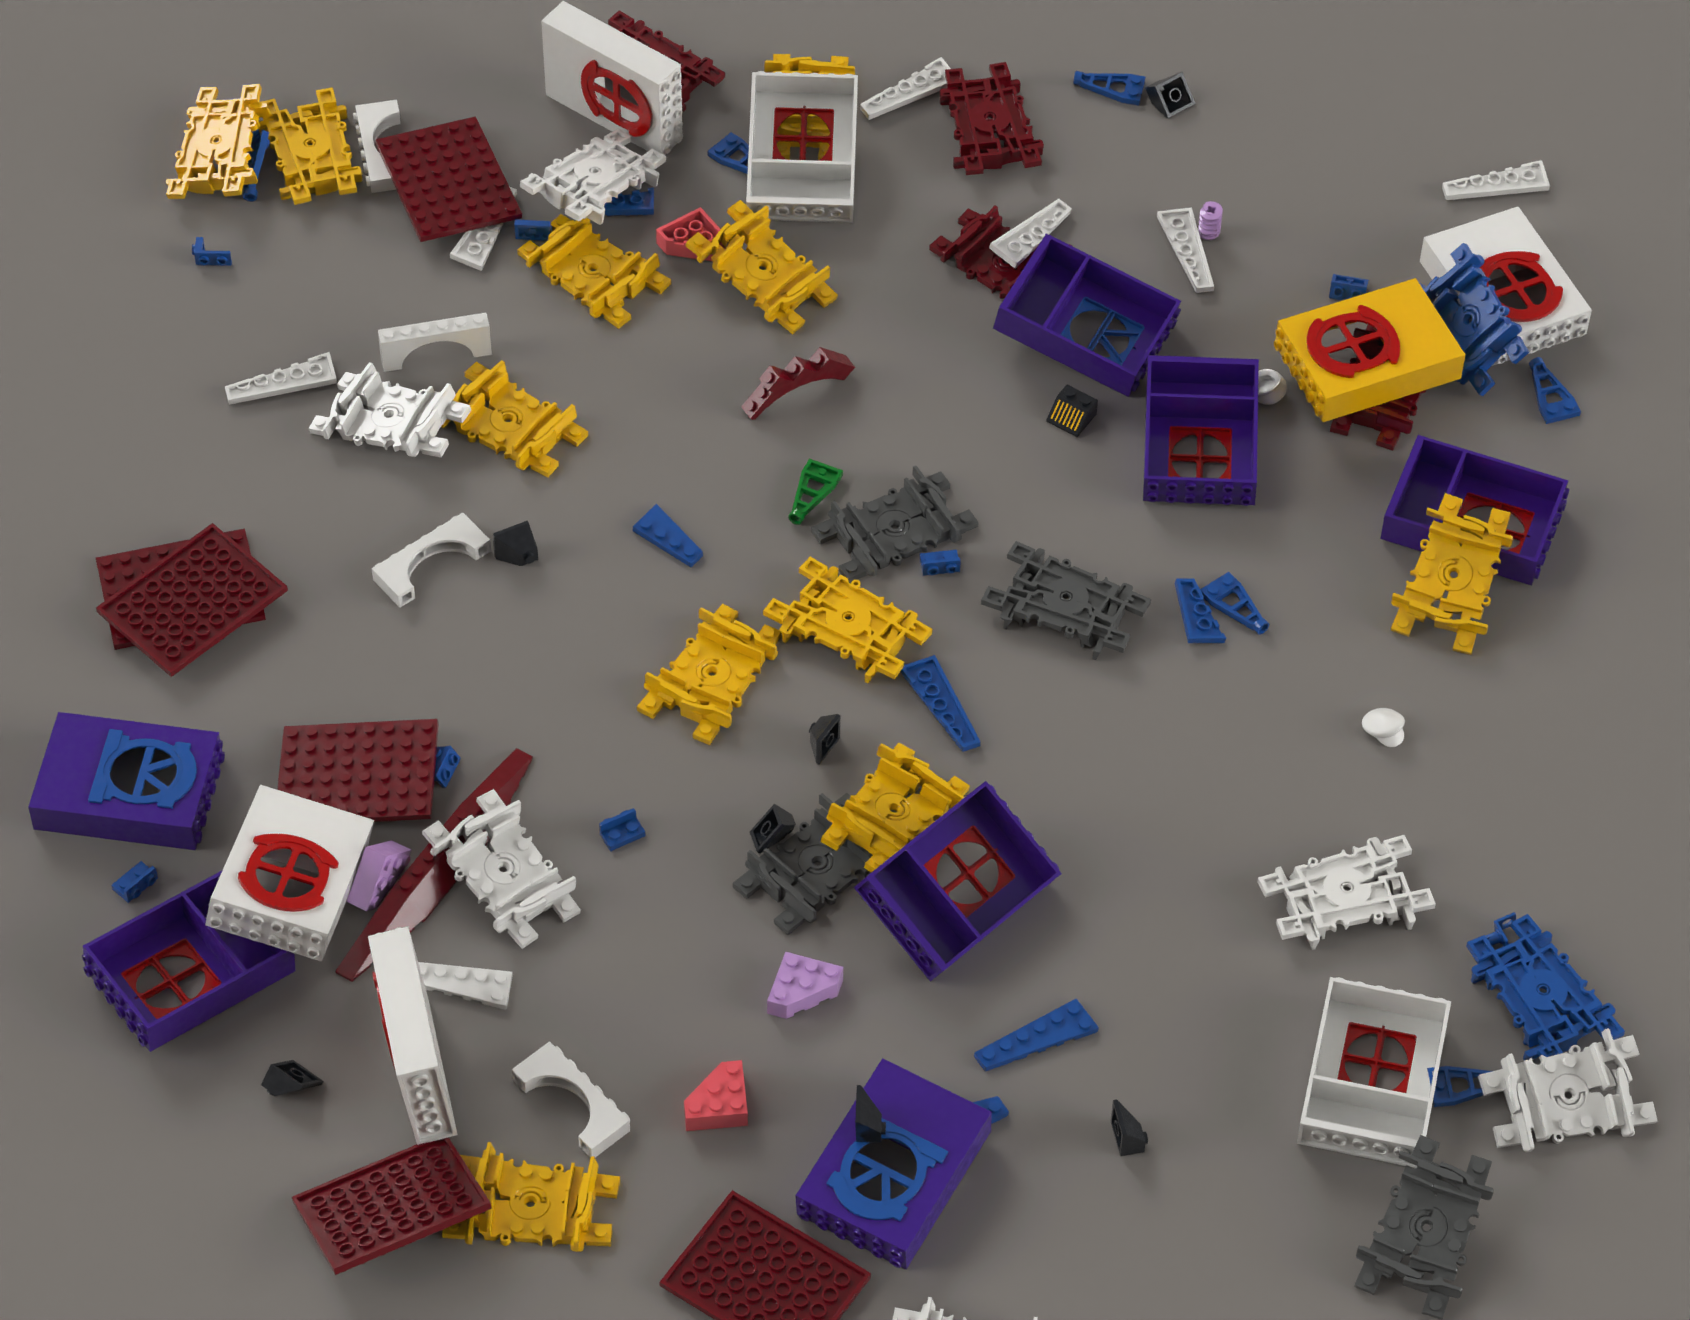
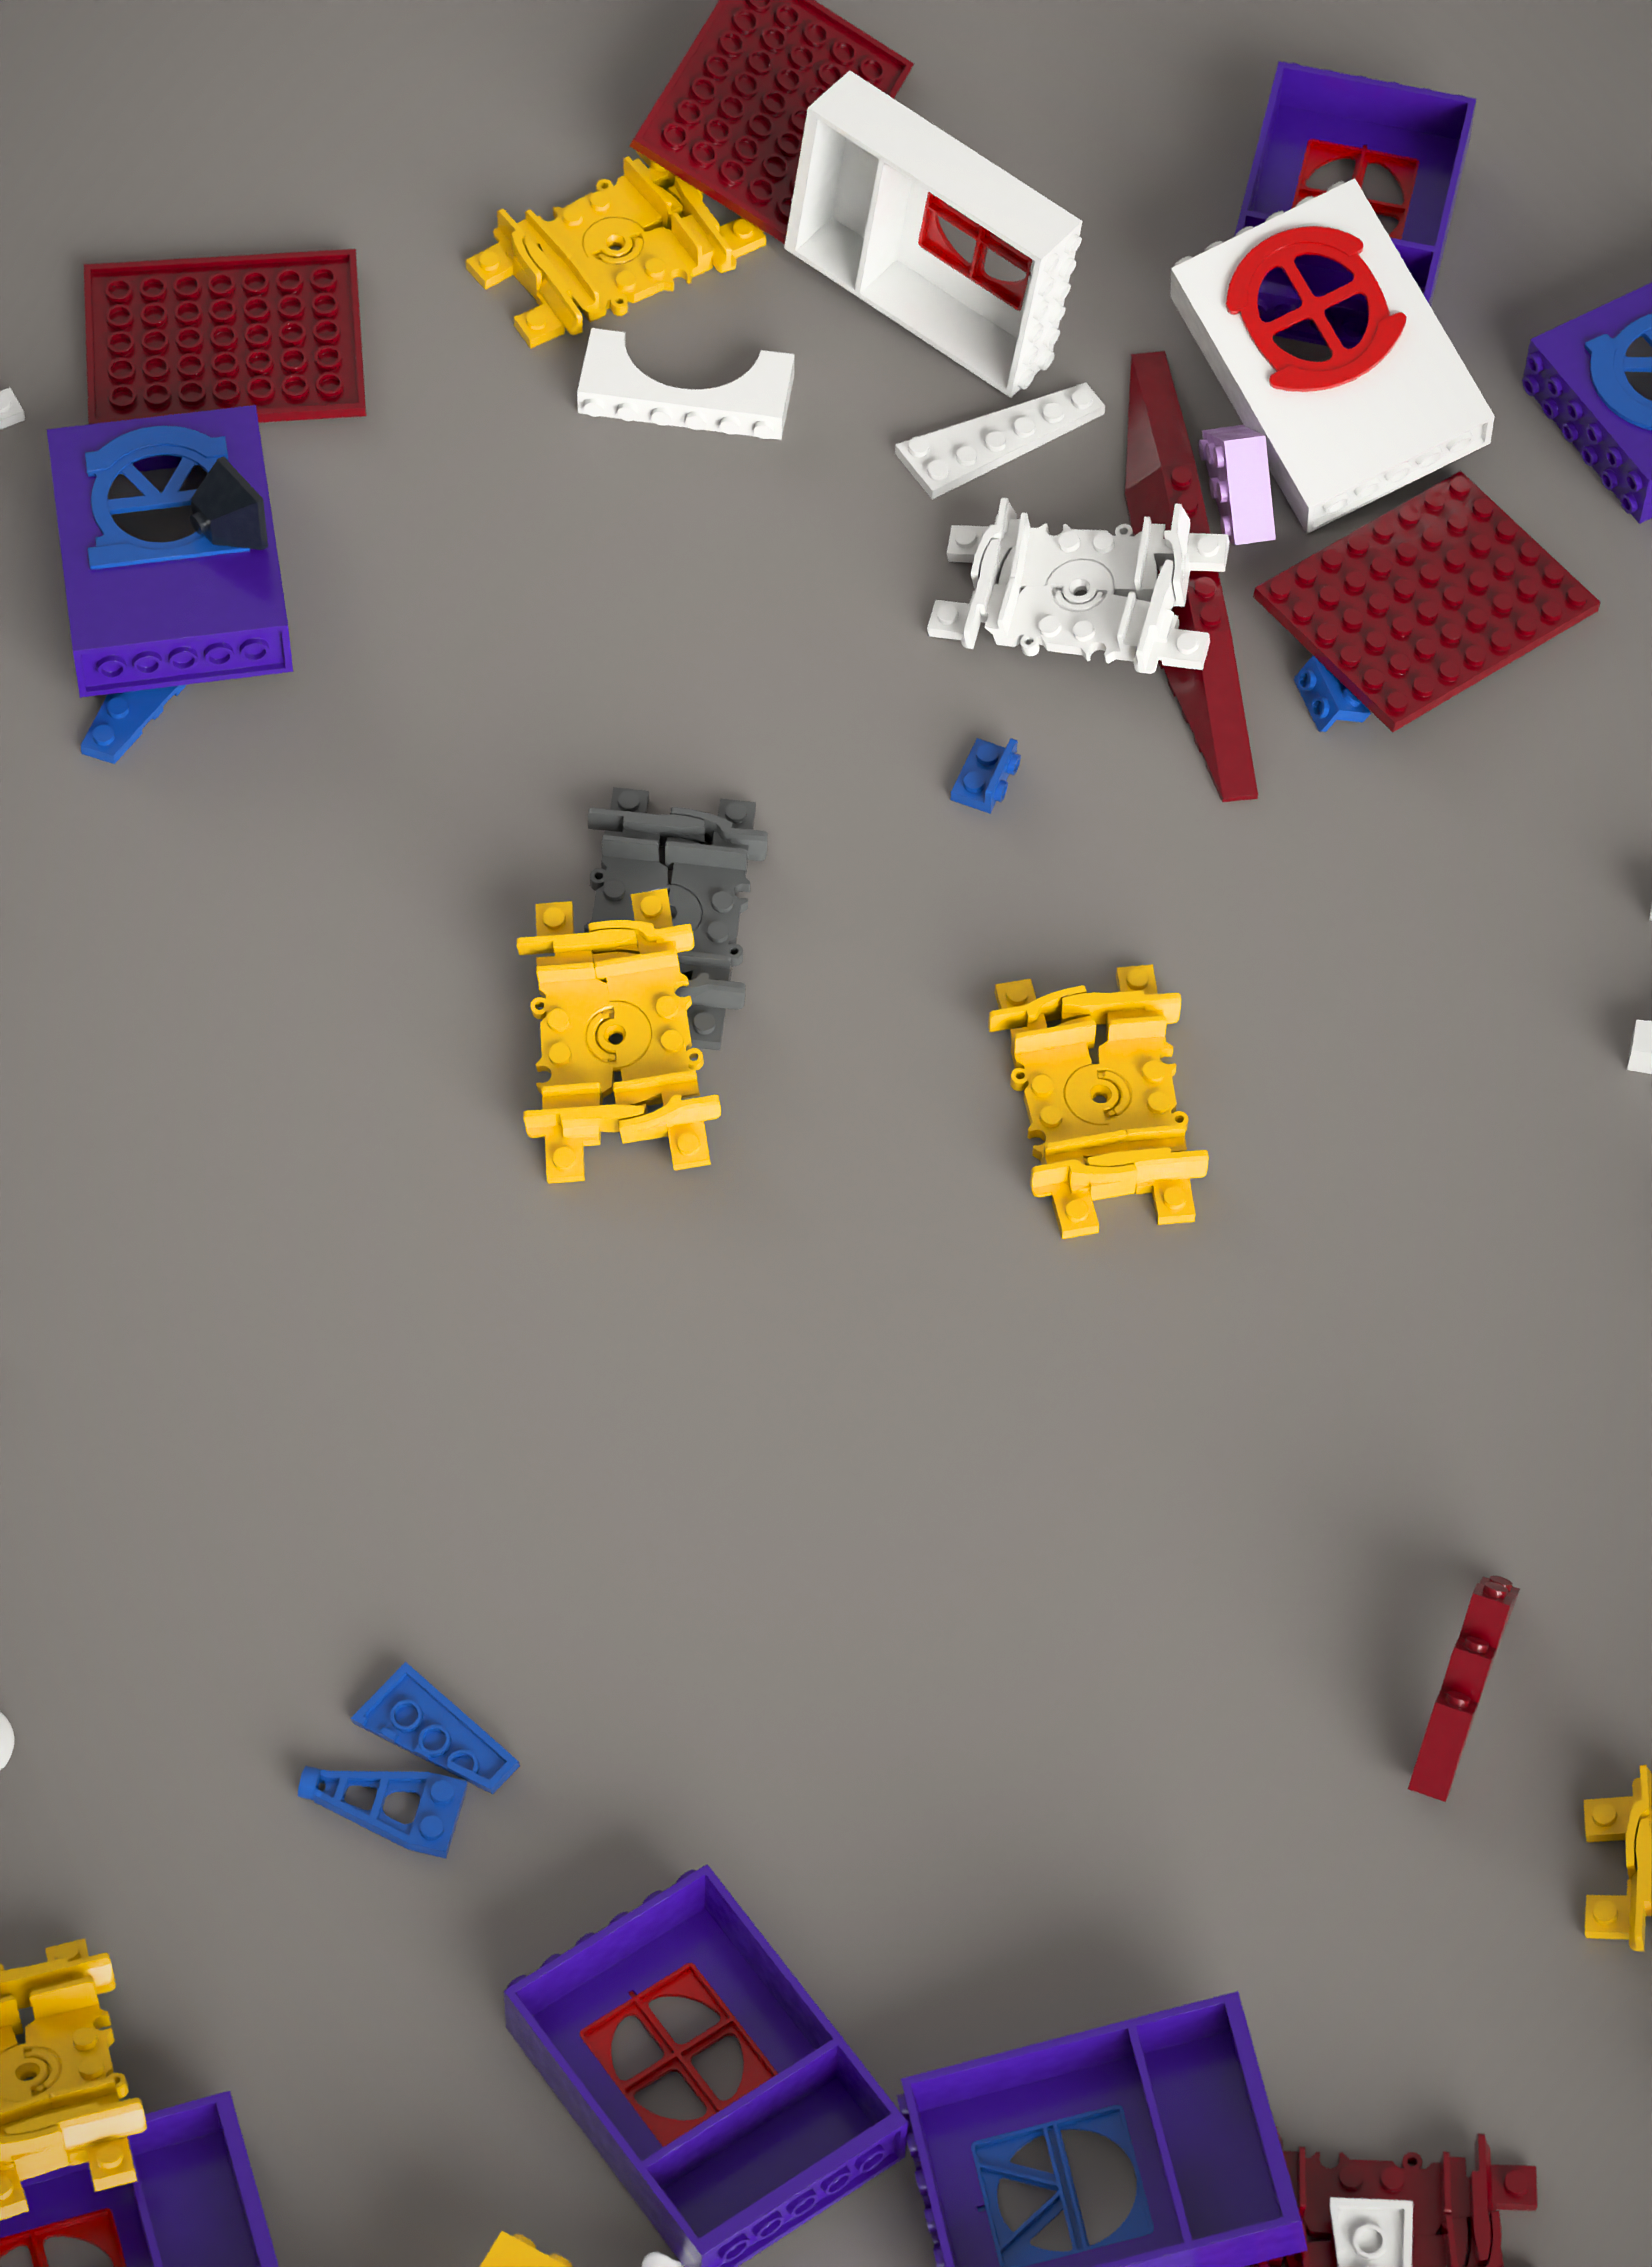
camera: 140 degrees right, 5 degrees up
(135, 881) = (1544, 287): blue bracket -> none
(288, 1078) = (1066, 179): black slope -> none
(515, 545) = (1582, 1074): black slope -> none
(667, 535) = (1394, 1273): blue wing -> none
(718, 1100) = (486, 503): coral brick -> none
(772, 828) = (765, 898): black slope -> none
(802, 985) = (519, 721): lavender brick -> none
(818, 472) = (1266, 1552): green plate -> none
(824, 735) = (832, 1090): black slope -> none
(871, 634) = (933, 1323): yellow piece -> none
(915, 510) = (1040, 1516): dark grey piece -> none
(920, 911) = (397, 896): dark purple panel -> none
(938, 695) = (736, 1297): blue wing -> none
(940, 562) = (931, 1529): blue bracket -> none
(1052, 1029) = (116, 897): blue wing -> none
(1072, 410) = (972, 1987): black slope -> none
(1081, 614) = (626, 1608): dark grey piece -> none

